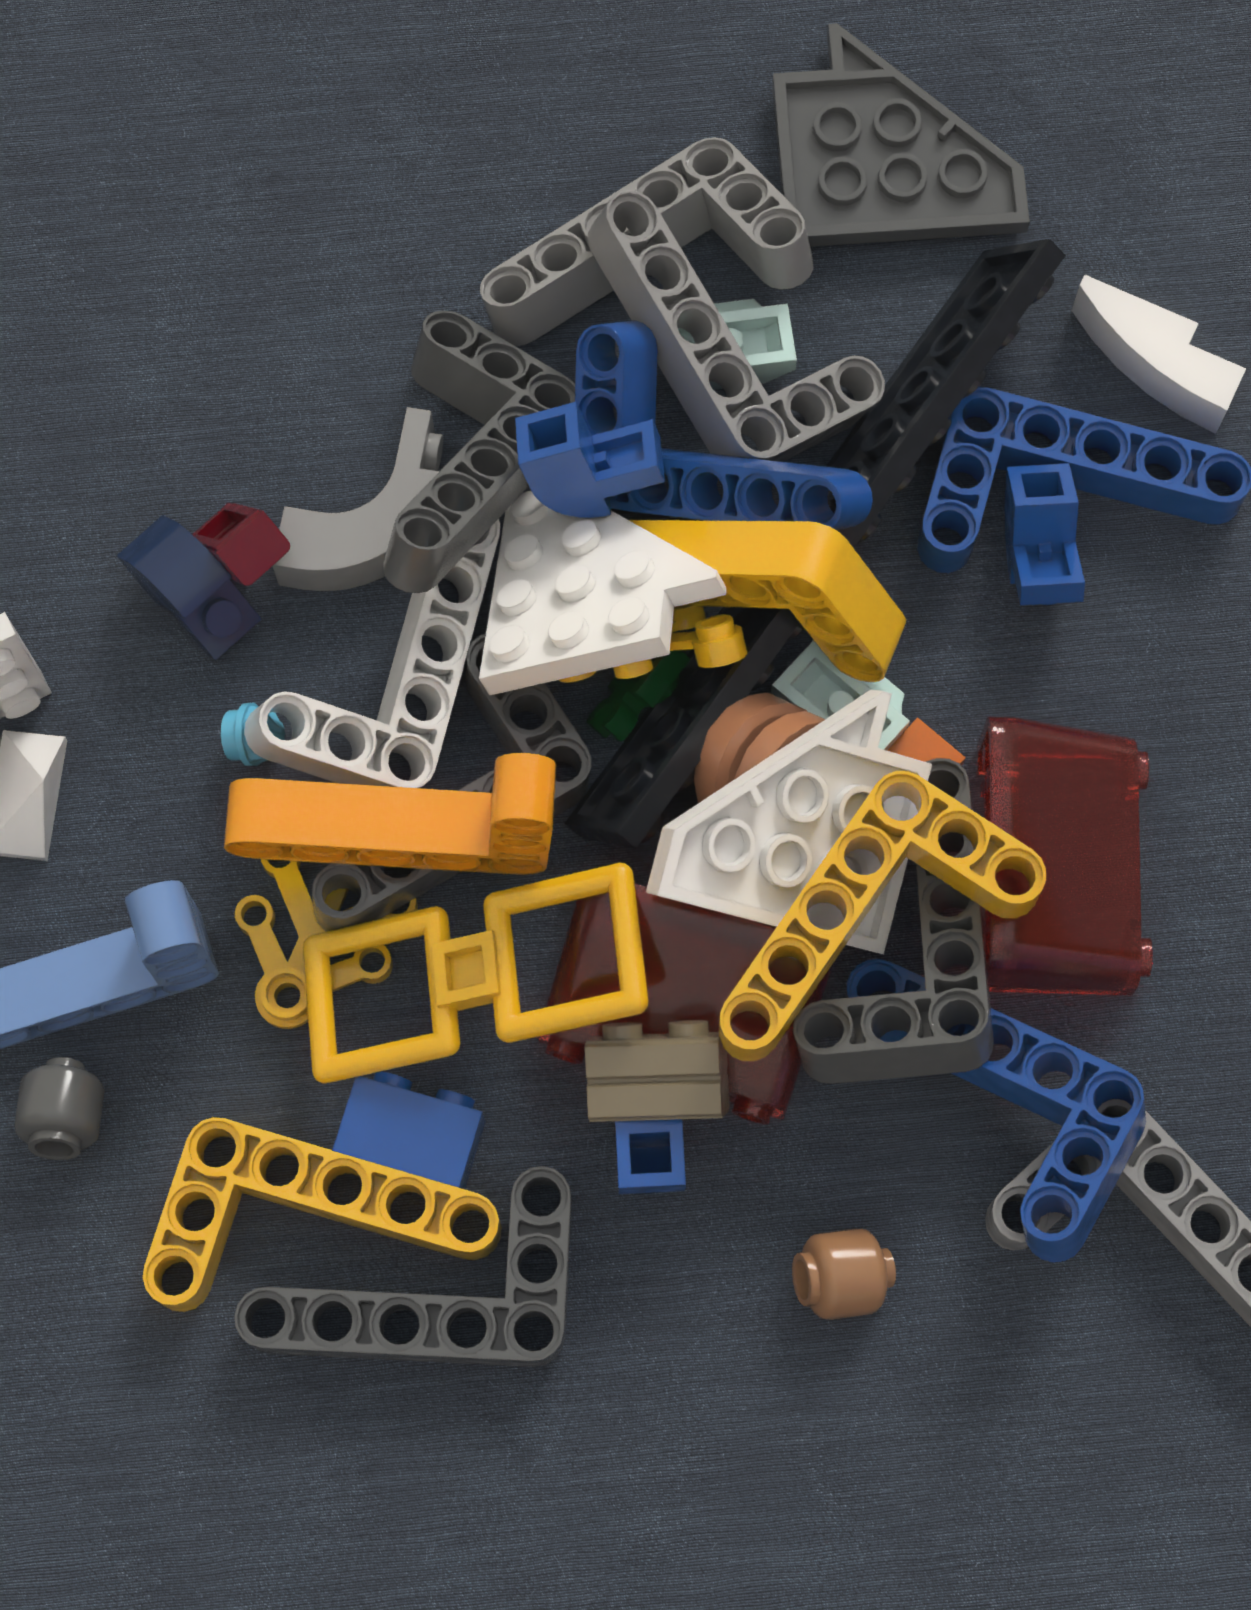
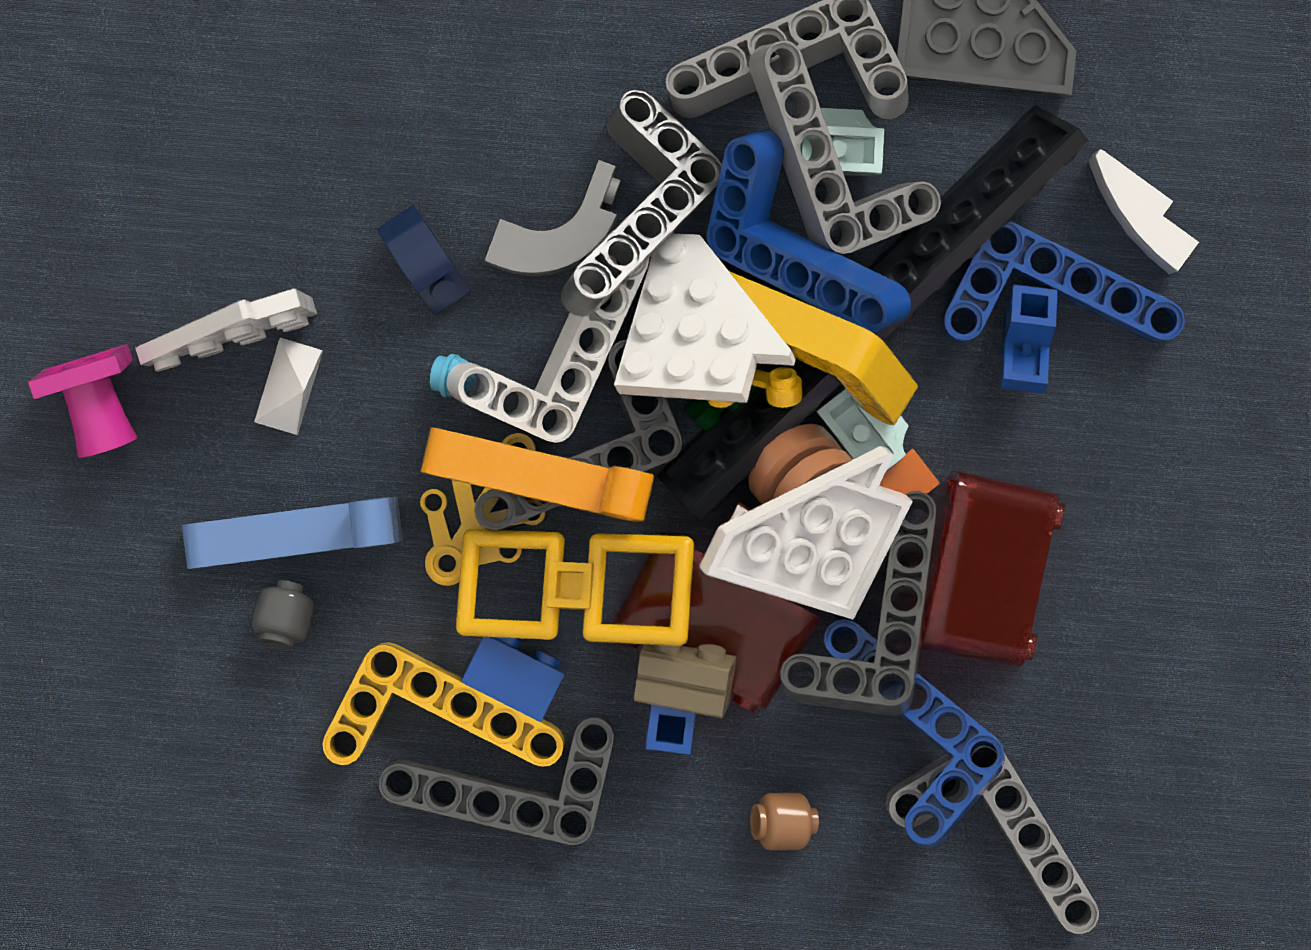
camera: 10 degrees right, 15 degrees up
(243, 541) = (463, 238): dark red slope -> none
(580, 470) = (713, 244): blue brick -> none
(857, 893) = (842, 593): yellow beam -> none

